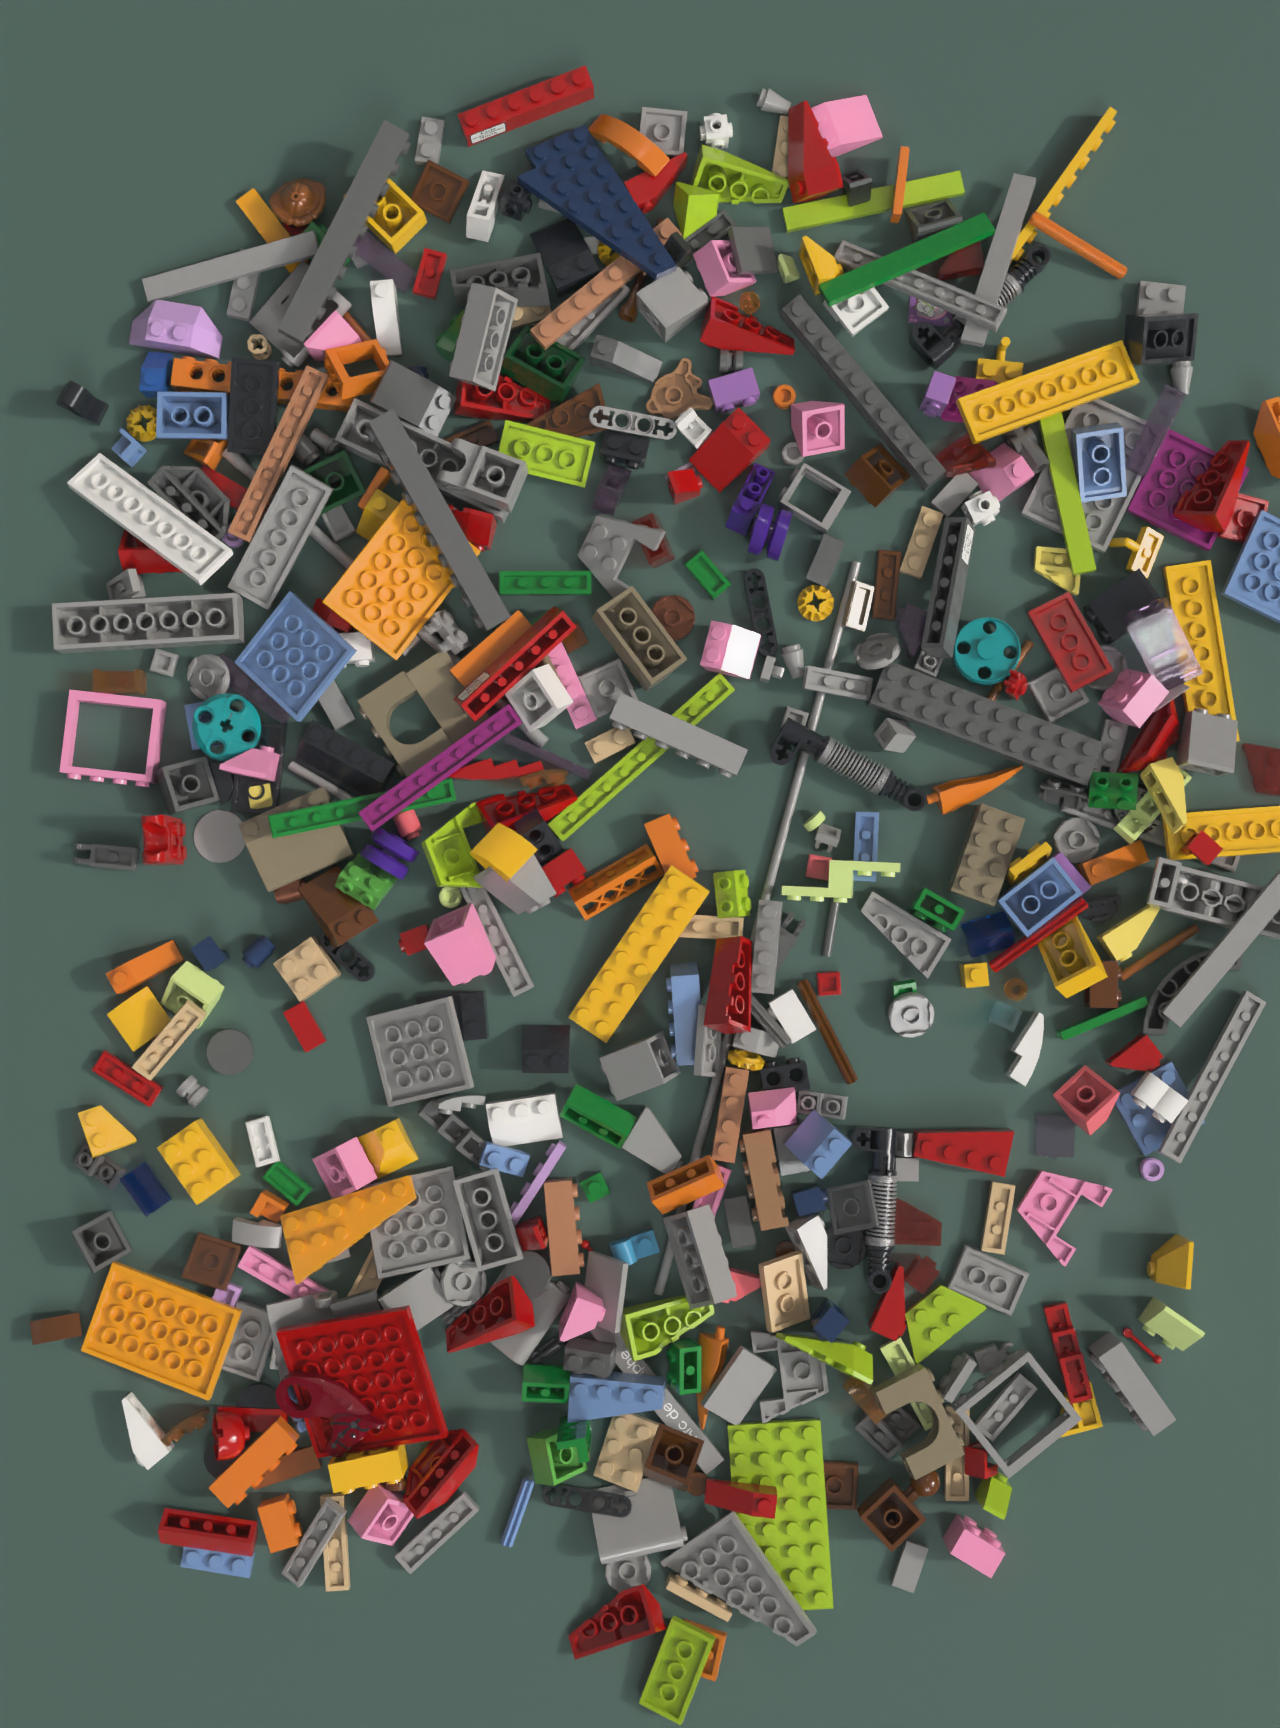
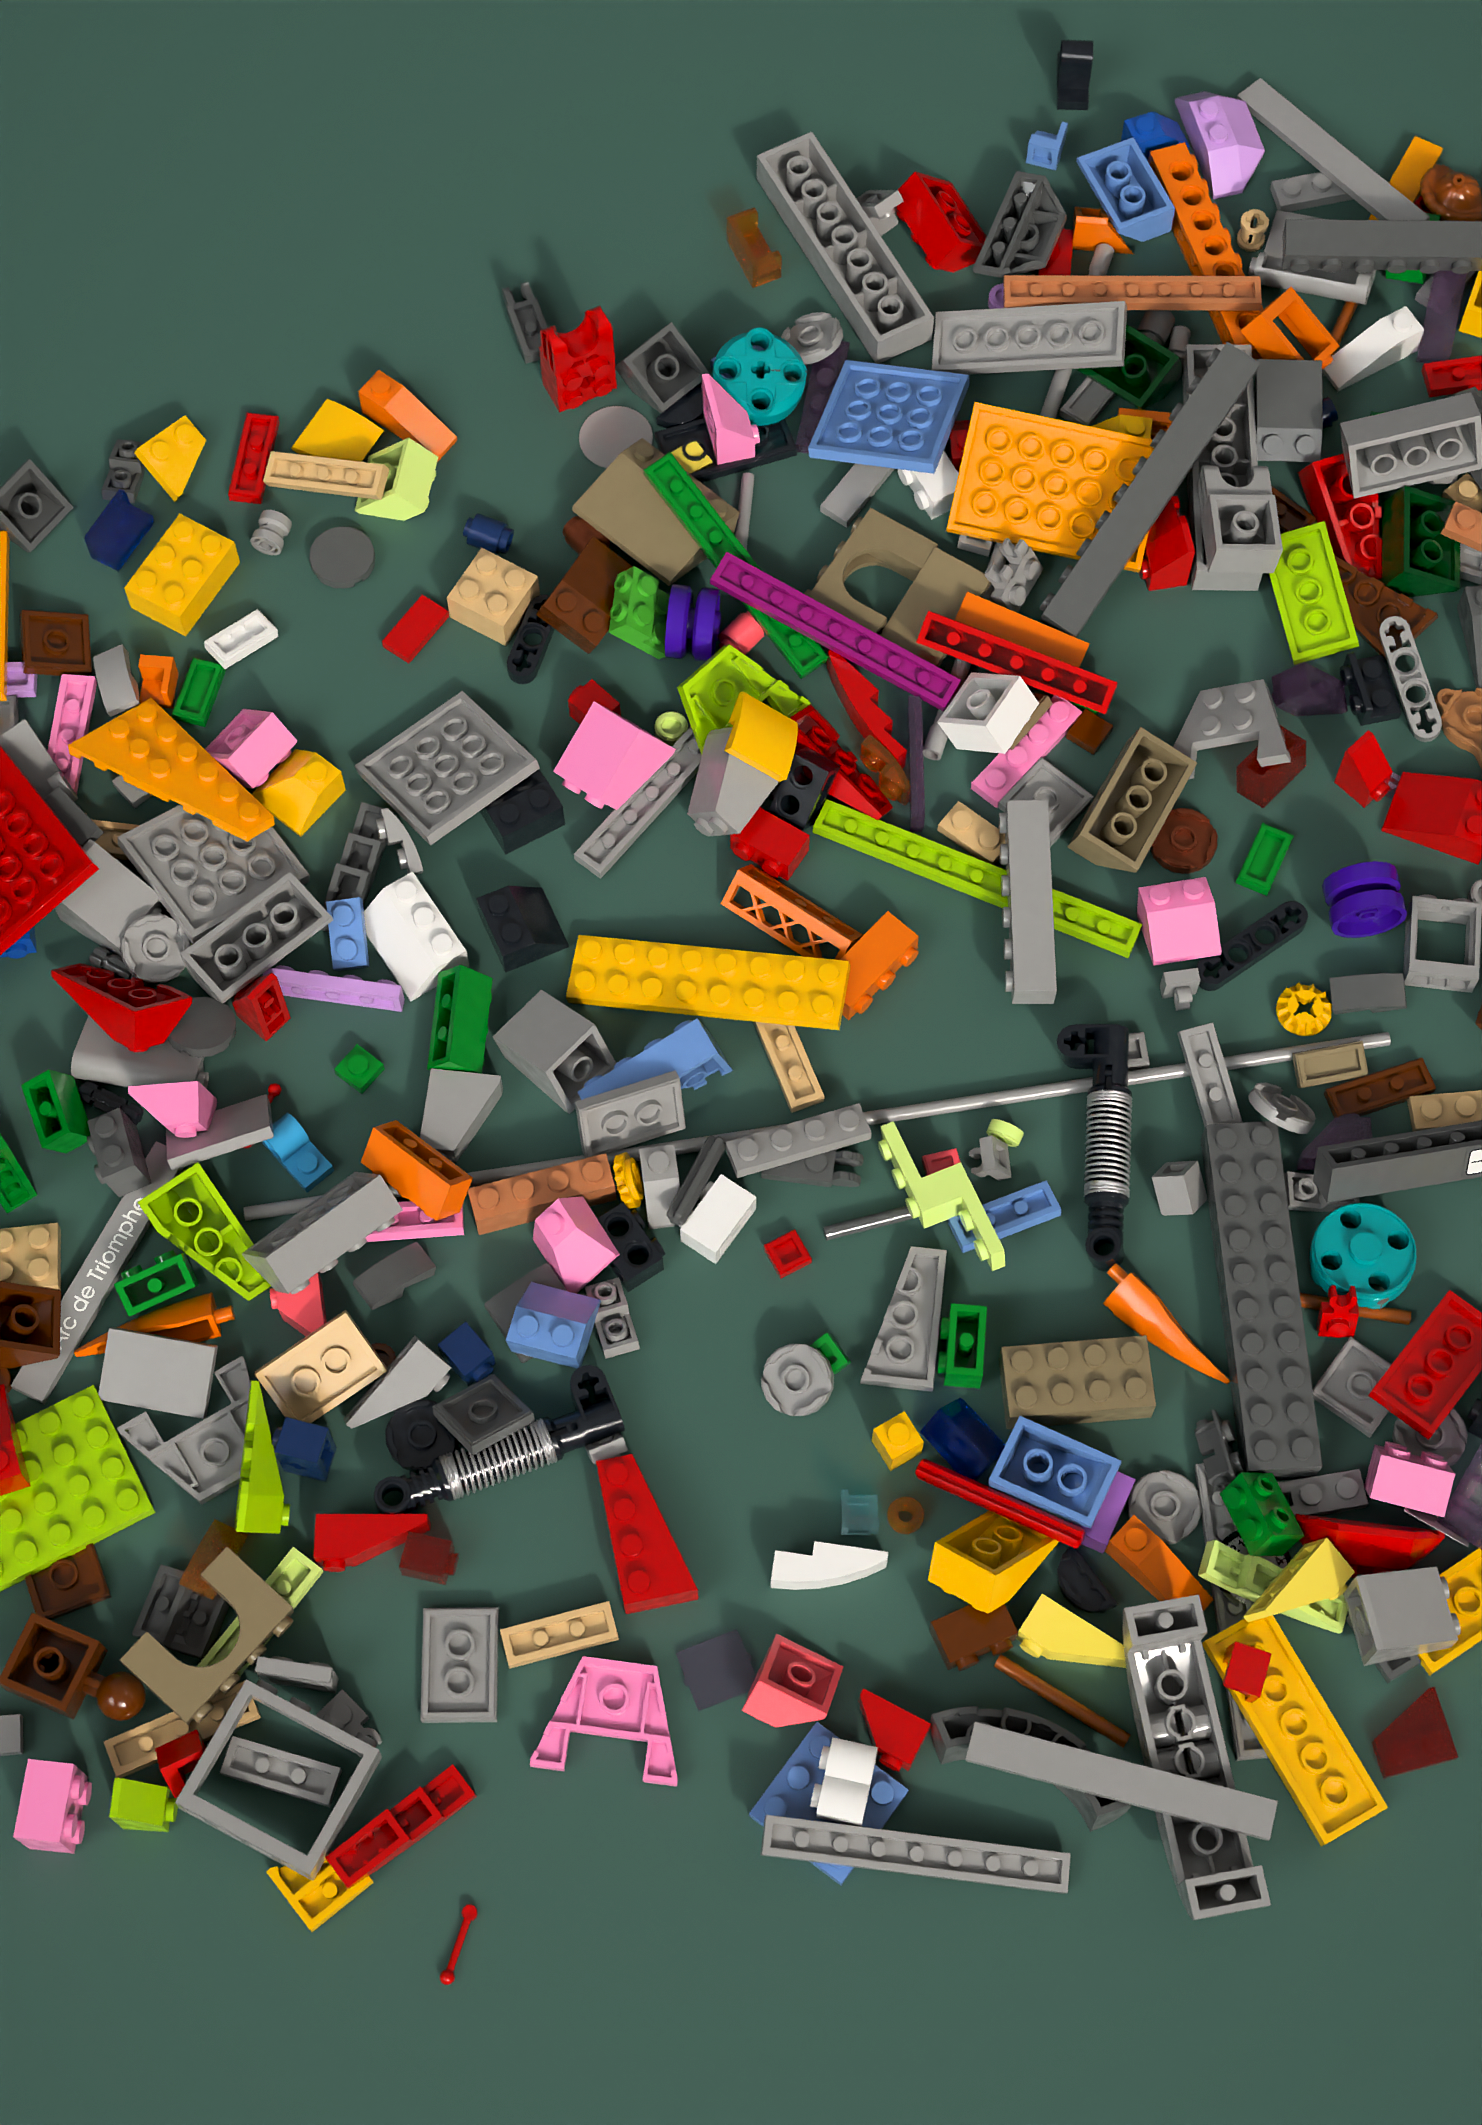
camera: 65 degrees right, 20 degrees down
(137, 431) = (1074, 146): yellow gear -> none
(150, 519) = (973, 191): white plate -> none
(155, 741) = (693, 316): bright pink window -> none
(164, 662) = (803, 289): light grey tile -> none
(209, 954) = (456, 479): dark blue panel -> none
(252, 405) = (1178, 240): black plate -> none
(331, 334) = (1314, 285): bright pink slope -> none
(343, 761) = (786, 523): black slope -> none
(544, 583) = (1142, 667): green plate -> none
(562, 1226) = (286, 1046): nougat brick -> none
(613, 1395) = (78, 1202): medium blue wedge -> none
(693, 428) = (1447, 752): white bracket -> none
(730, 986) = (717, 1108): red wedge -> none
(732, 894) = (850, 1068): lime bracket -> none
(750, 499) = (1414, 865): dark purple slope -> none
(764, 1179) = (469, 1278): medium nougat wedge -> none
(794, 660) = (1214, 1009): light grey cone -> none
(827, 1031) = (718, 1280): reddish brown axle -> none
(907, 1168) = (572, 1475): light grey tile -> none
(915, 1226) = (494, 1521): clear red wing -> none
(938, 1318) = (371, 1617): lime wing -> none
(1021, 867) = (1096, 1432): yellow plate -> none
(1102, 1018) = (923, 1653): green tile -> none
(1134, 1388) = (393, 1936): light grey brick -> none
(1151, 1169) = (733, 1836): lavender tile -> none
(1169, 1325) = (508, 1961): yellowish green slope -> none
(1173, 1263) = (605, 1921): yellow slope -> none

